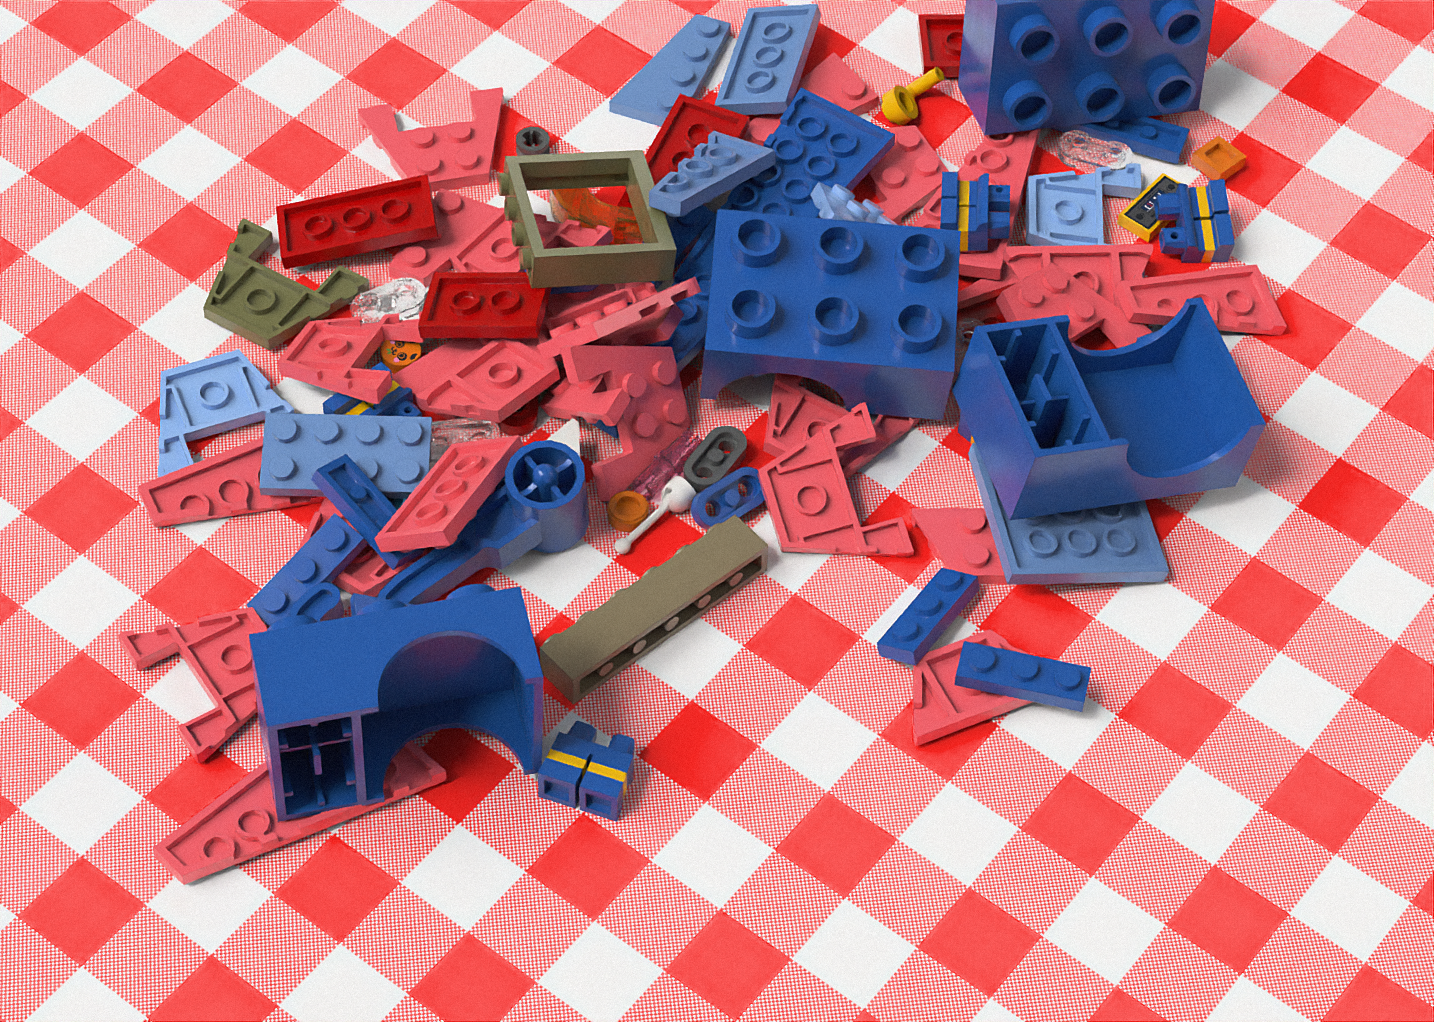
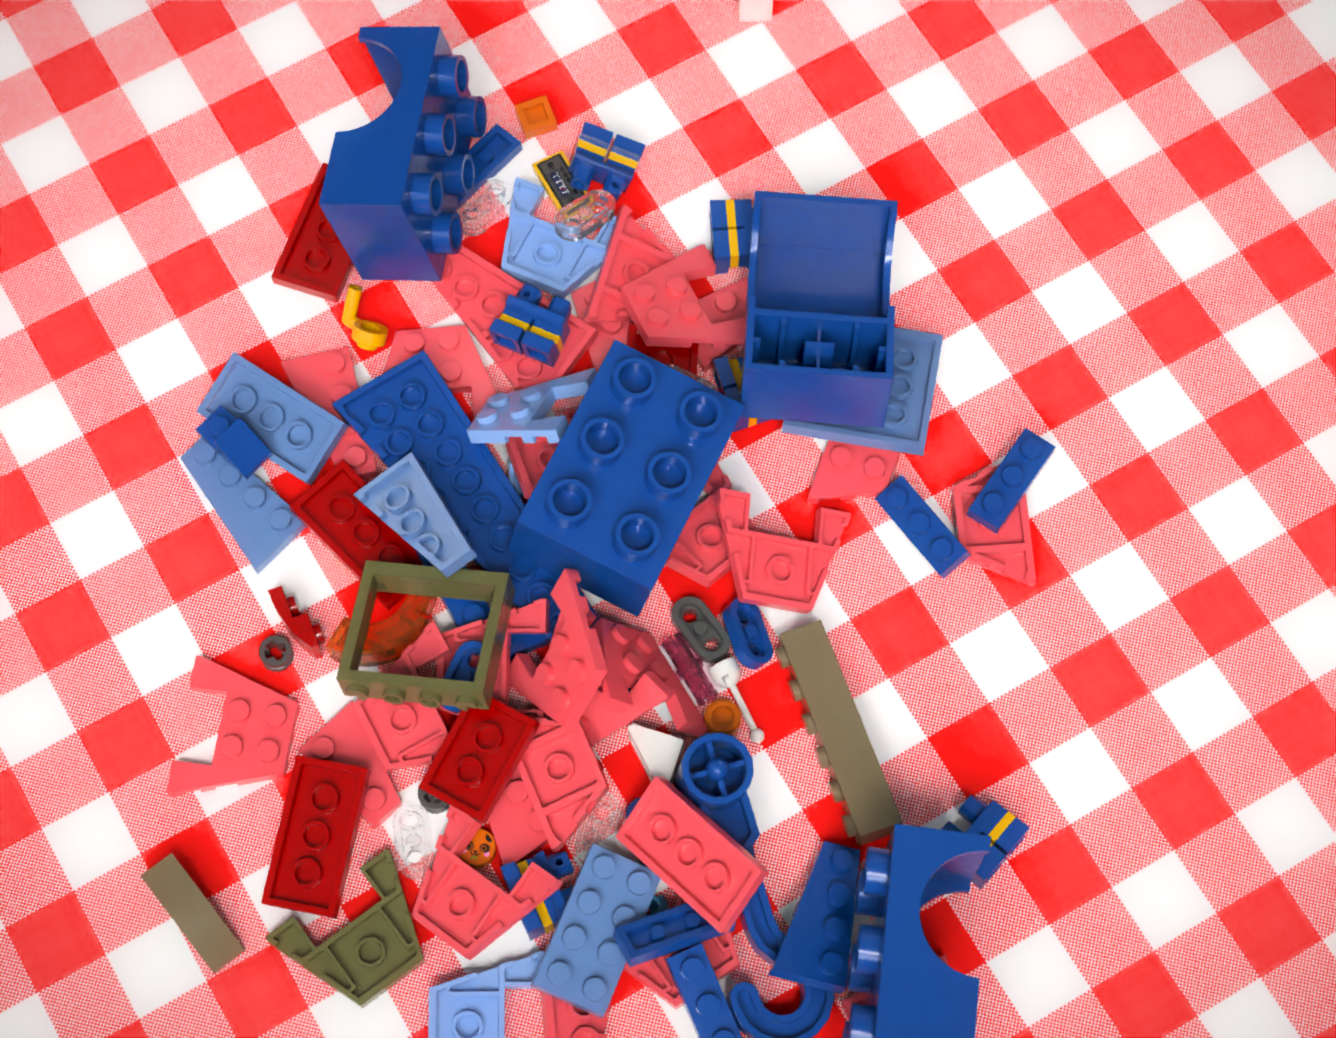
camera: 65 degrees left, 15 degrees up
(247, 160) = (192, 913): none -> dark tan slope
(574, 133) = (306, 635): none -> red slope
(725, 36) = (234, 441): none -> blue slope
(1123, 220) = (579, 217): none -> clear plate
(1233, 295) = (687, 185): coral wing -> none

